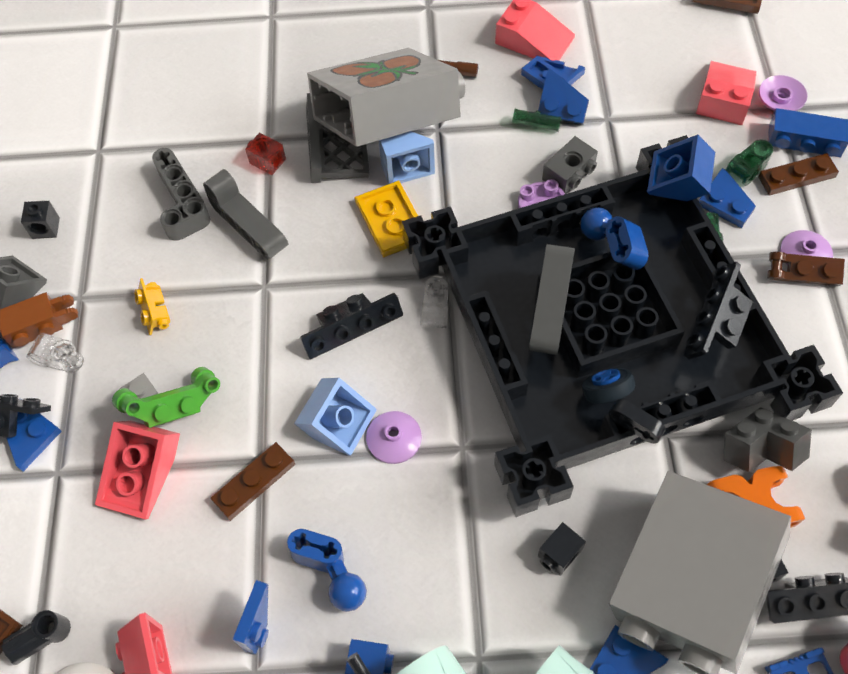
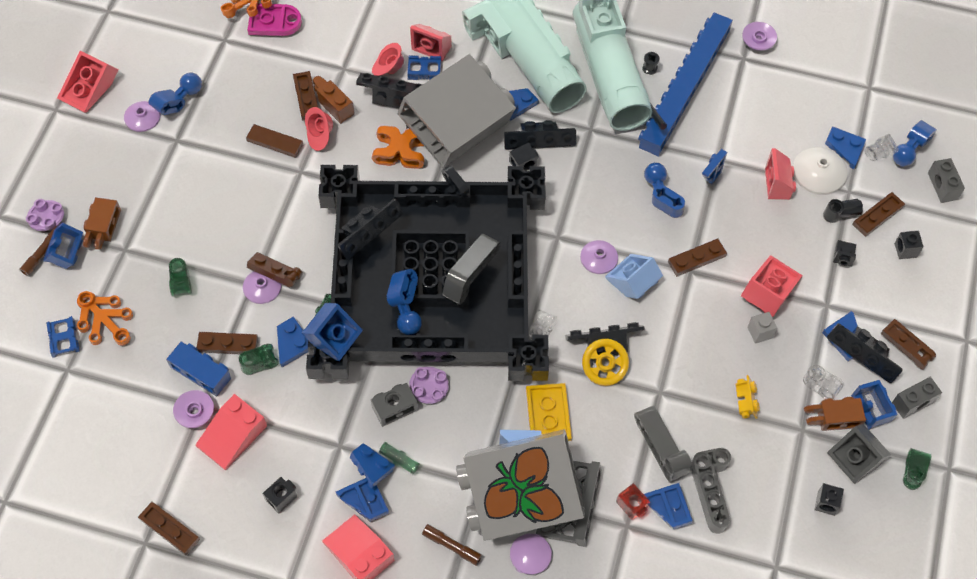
camera: 165 degrees left, 0 degrees up
(31, 560) = (844, 253): none -> black bracket
(169, 404) = (734, 312): bright green plate -> none
(216, 157) = (670, 505): none -> blue wing
(339, 285) = (591, 353): none -> yellow plate
(556, 608) = (540, 135): none -> black bracket
(608, 385) = (462, 218): black wheel -> none
(639, 50) = (276, 502): none -> black brick
(767, 437) = (376, 170): dark grey brick -> none

